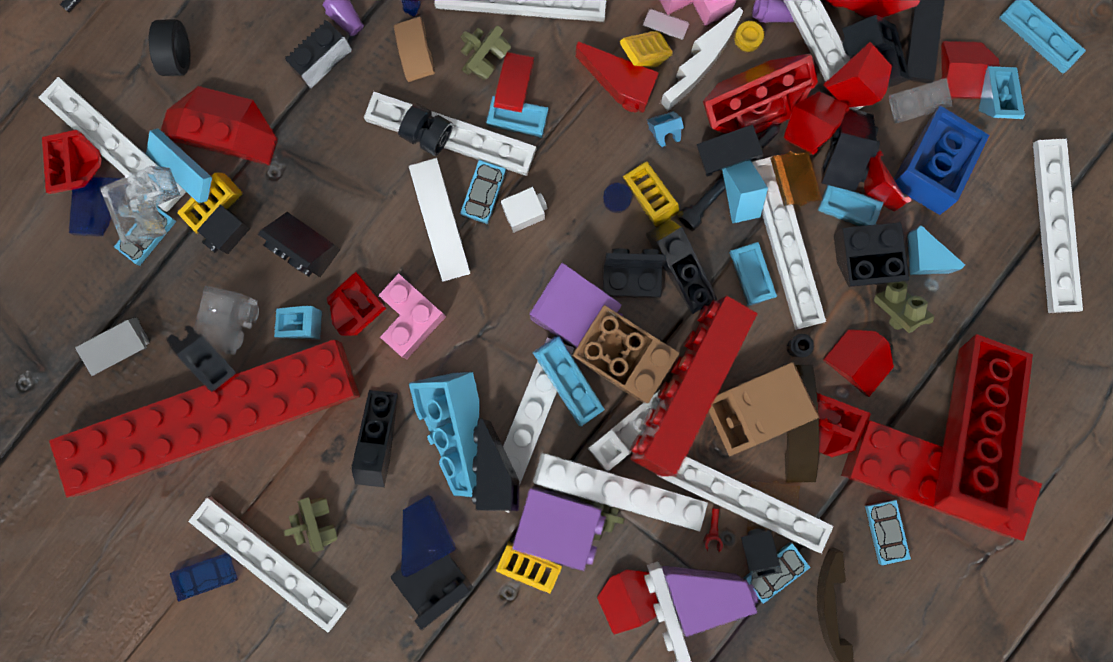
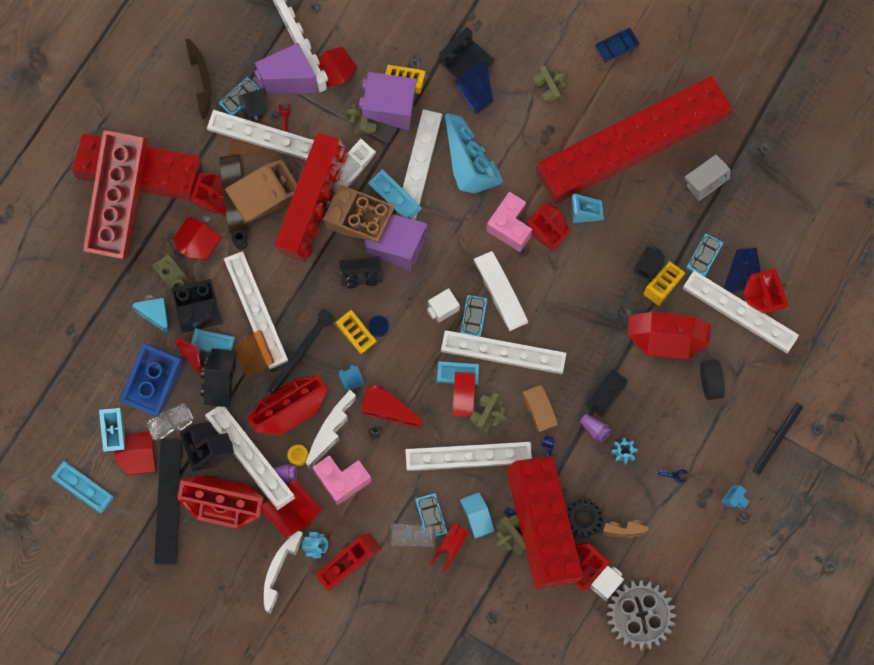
camera: 170 degrees right, 10 degrees down
(134, 203) = (708, 265): clear brick -> none
(184, 169) = (688, 299): medium azure tile -> none
(201, 358) = (639, 164): black hinge -> none
(223, 316) = (633, 202): clear brick -> none
(268, 564) = (575, 57): white plate -> none
(305, 247) = (593, 257): black slope -> none
(375, 439) = (519, 143): black slope -> none
(422, 127) = (526, 345): black wheel -> none
(495, 477) = (433, 124): black slope -> none
(620, 492) = (351, 127): white plate -> none
(646, 49) = (371, 427): yellow slope -> none
(666, 24) = (363, 453): white sticker -> none
(682, 265) = (328, 284): black slope -> none
(729, 149) = (303, 362): black hinge -> none
(744, 191) = (290, 340): medium azure slope -> none
(753, 274) = (276, 287): medium azure tile -> none
(814, 121) = (244, 393): red slope -> none
(862, 78) = (216, 419): red slope -> none
(887, 532) = (168, 131): tile -> none
(1057, 226) = (65, 348): white plate -> none

